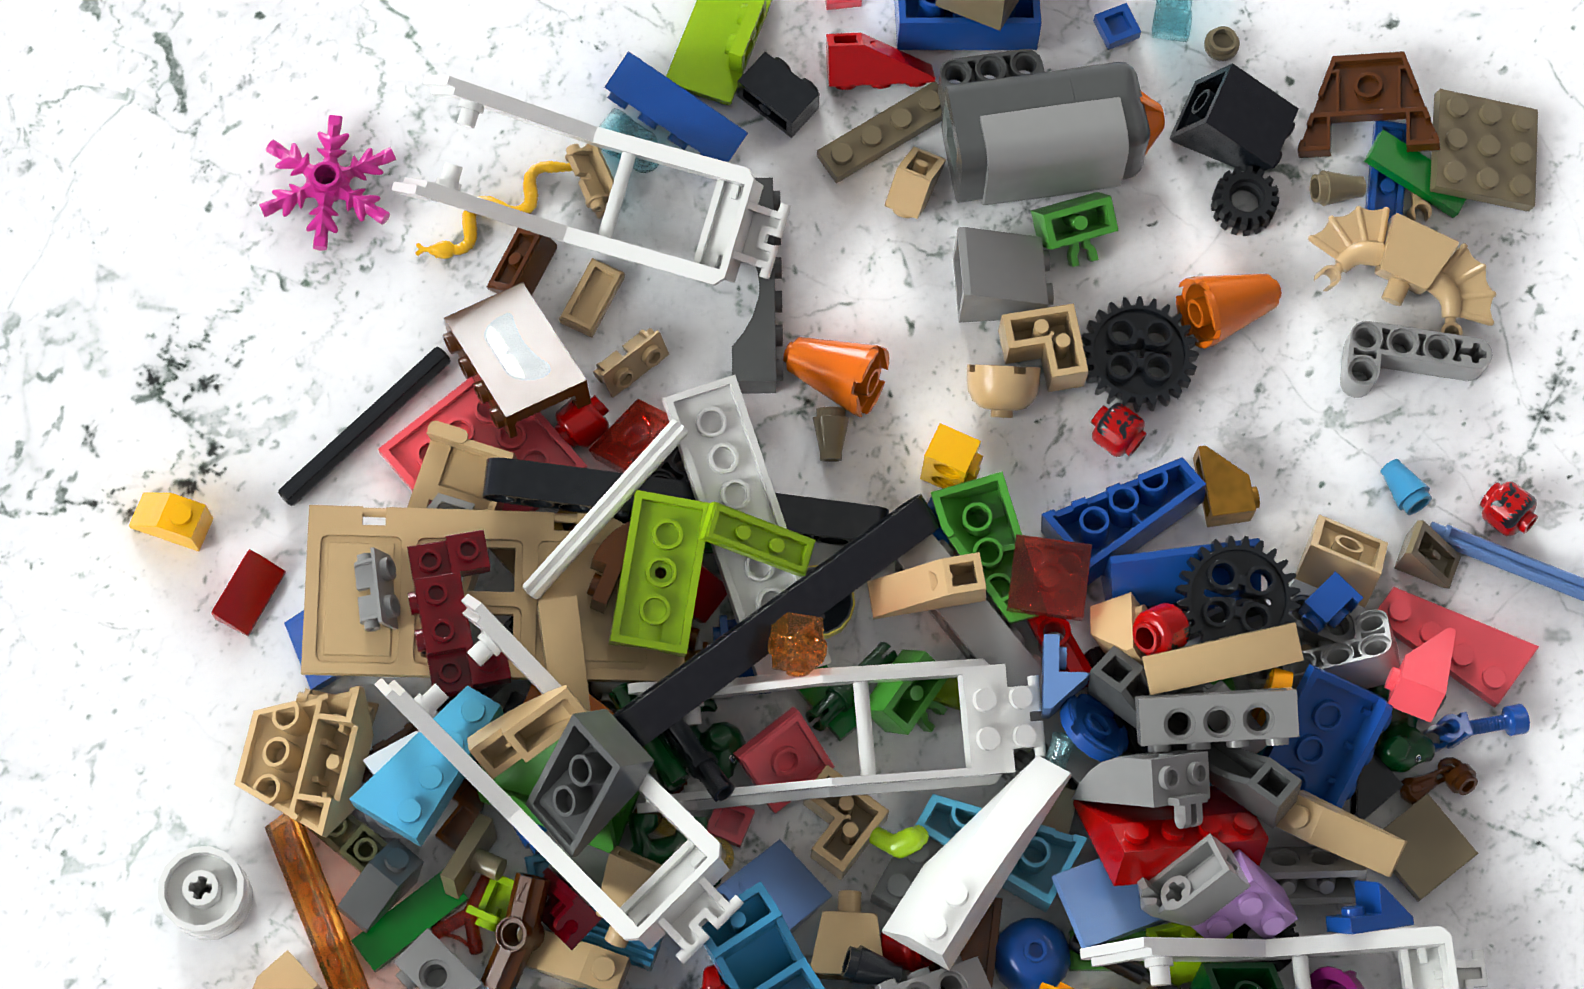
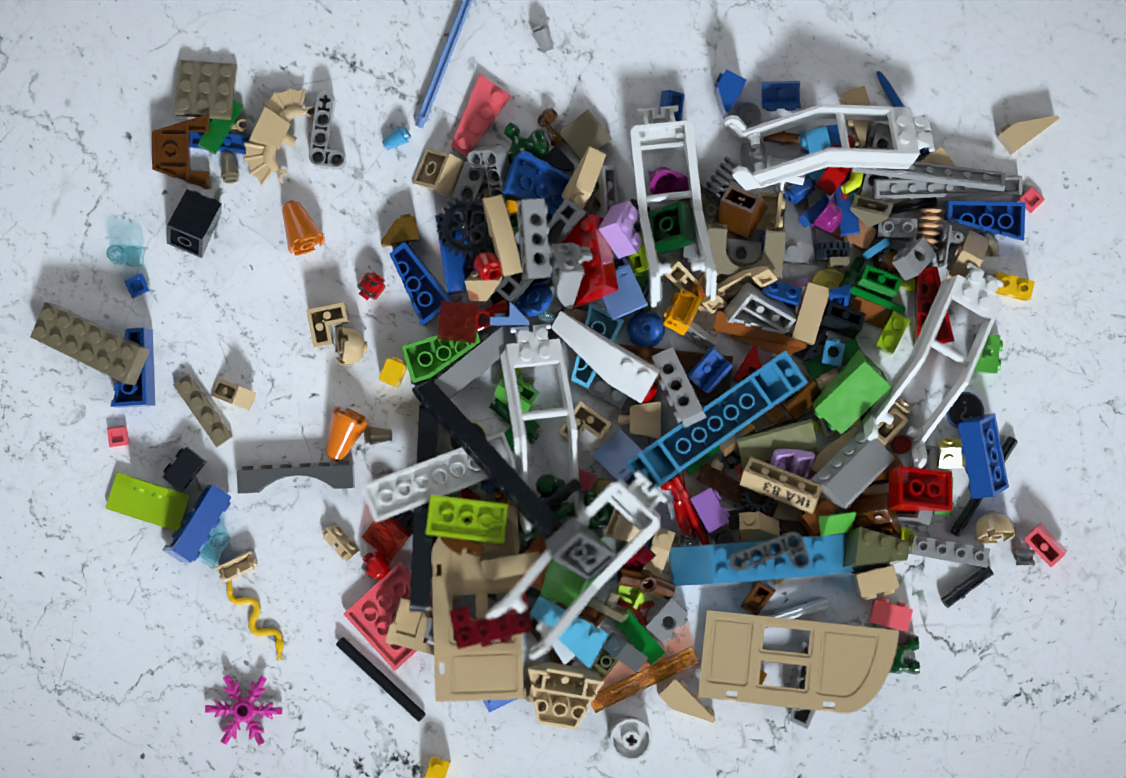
camera: 90 degrees left, 15 degrees up
(248, 593) = (474, 732): red slope -> none
(376, 573) = (489, 660): light grey hinge -> none
(514, 357) = (345, 602): panel -> none
(523, 262) = (286, 602): reddish brown slope -> none
(524, 730) = (556, 582): tan slope -> none
(592, 297) = (304, 564): tan tile -> none
(605, 509) = (434, 549): white axle -> none
(733, 229) = (273, 491): white piece -> none
(757, 539) = (446, 471): lime tile -> none
(783, 754) = (552, 454): coral tile -> none
(797, 644) = (504, 448): clear orange brick -> none
(863, 60) = (164, 419): red slope -> none
(868, 967) = (658, 410): black cone -> none
(901, 843) = (597, 394): lime arm -> none
(929, 587) = (465, 384): tan slope -> none
(999, 274) = (288, 347): light grey slope -> none
(1042, 128) = (207, 326): piece -> none
(1075, 222) = (256, 308): bright green brick -> none
(1137, 323) = (310, 275): black gear -> none
(1194, 884) = (617, 250): light grey piece -> none
(1221, 43) = (145, 229): dark tan plate -> none
(1250, 182) = (227, 218): black tyre -> none
(1329, 604) = (467, 180): blue brick -> none
(1374, 911) = (624, 163): blue slope -> none
(1422, 677) = (507, 135): coral slope -> none
(1428, 556) = (434, 127): dark tan slope -> none
(1458, 728) = (526, 116): blue bar -> none
(1509, 508) = (407, 85): red head -> none

